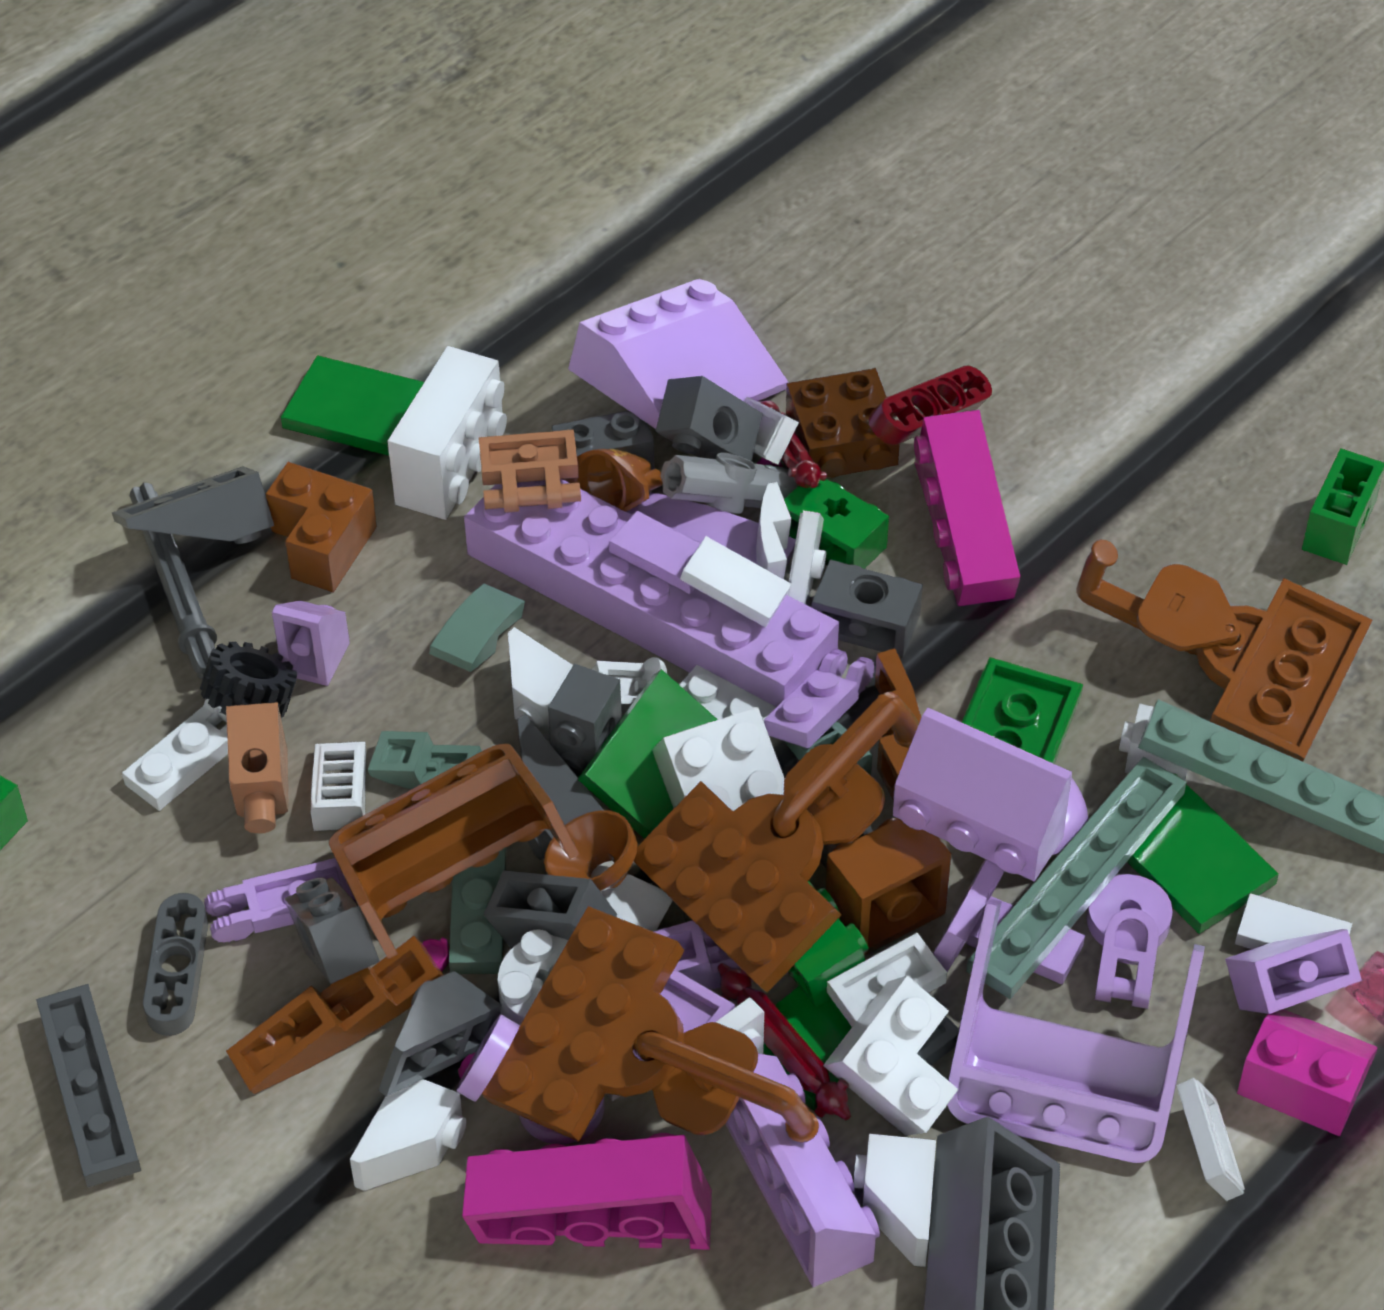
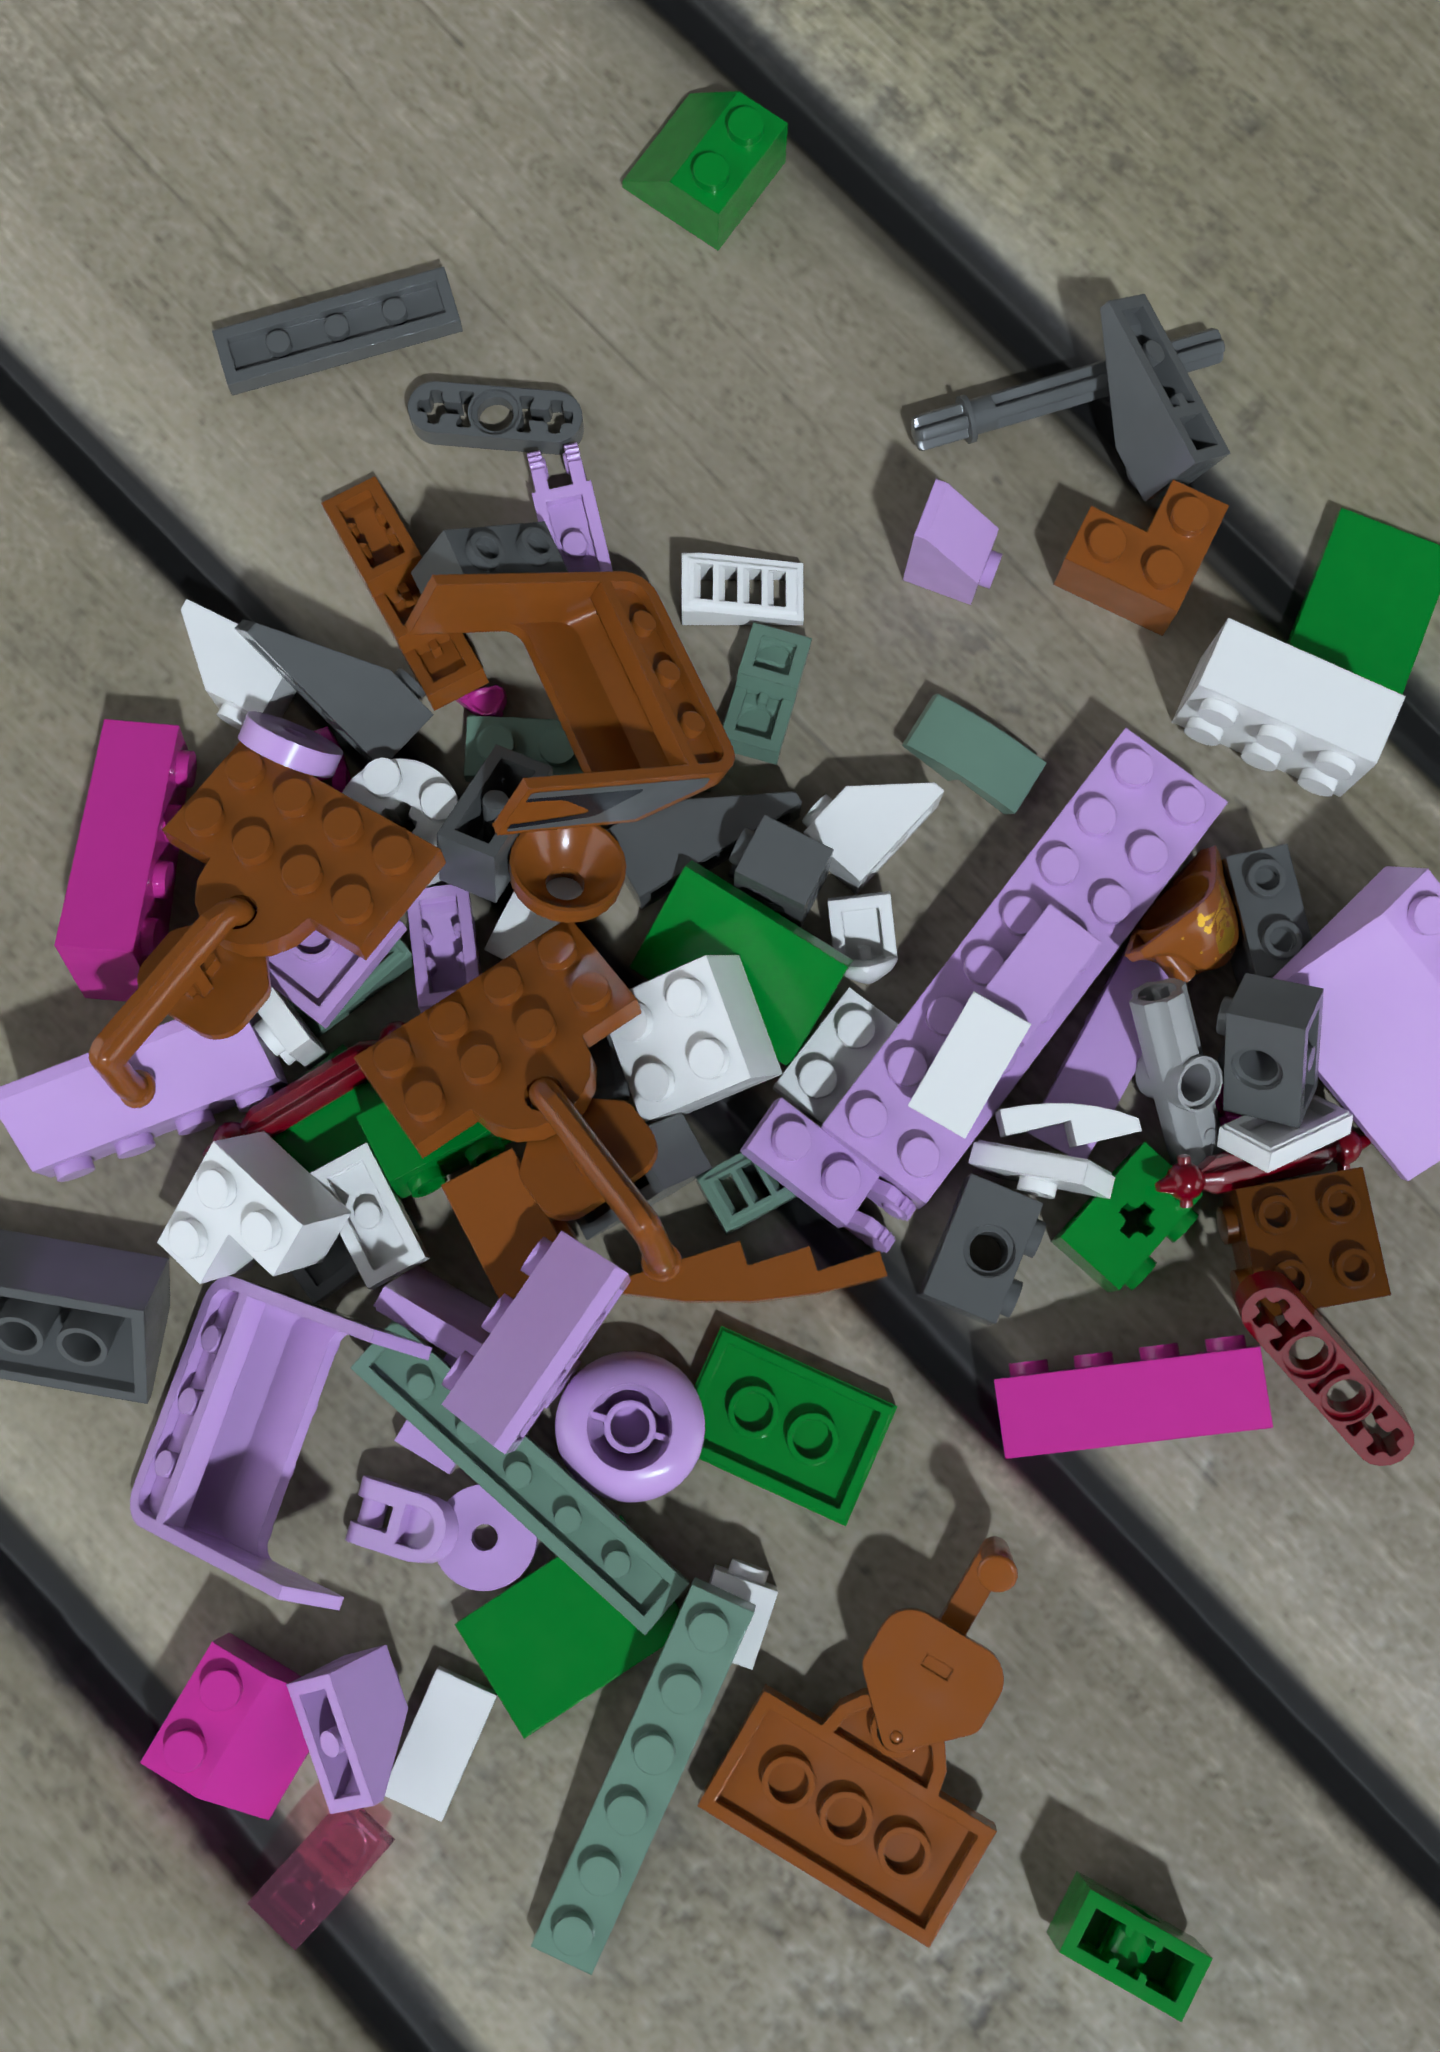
camera: 90 degrees right, 30 degrees up
(179, 758) = (803, 421): white plate -> none
(247, 677) = (846, 474): black tyre -> none
(257, 764) = (745, 489): nougat torso -> none
(528, 459) = (1199, 800): nougat plate -> none
(899, 1190) = (110, 1208): white slope -> none
(1211, 1139) = (142, 1585): white tile -> none

